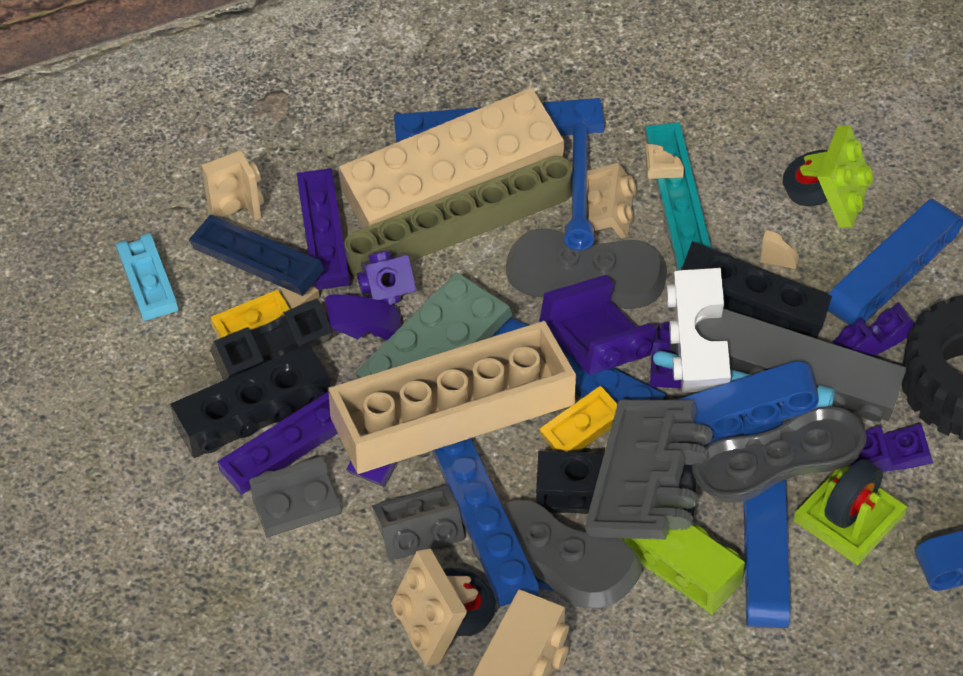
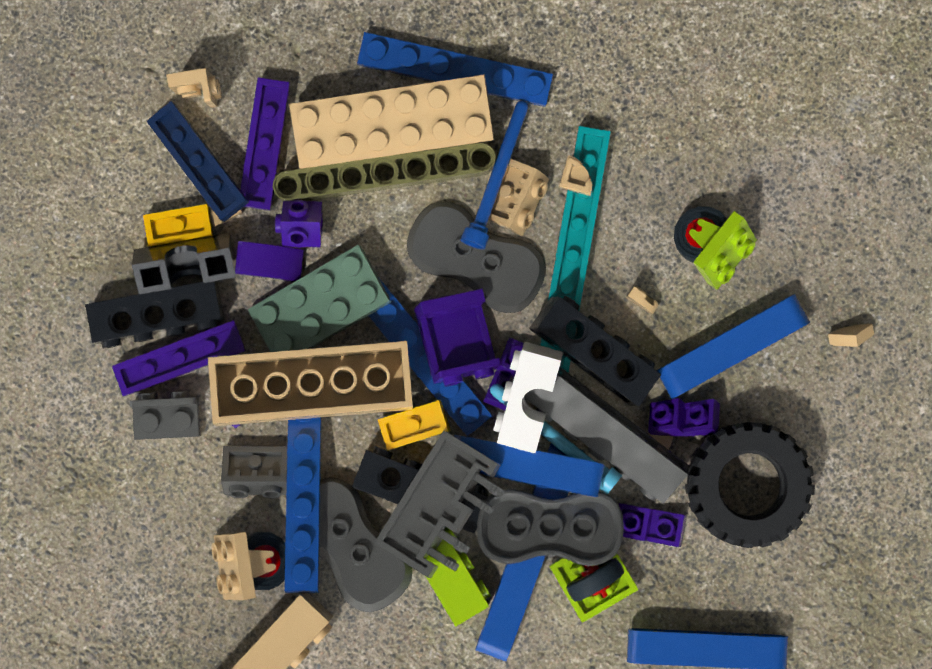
camera: 15 degrees right, 35 degrees up
(147, 277) = (101, 147): medium azure plate -> none

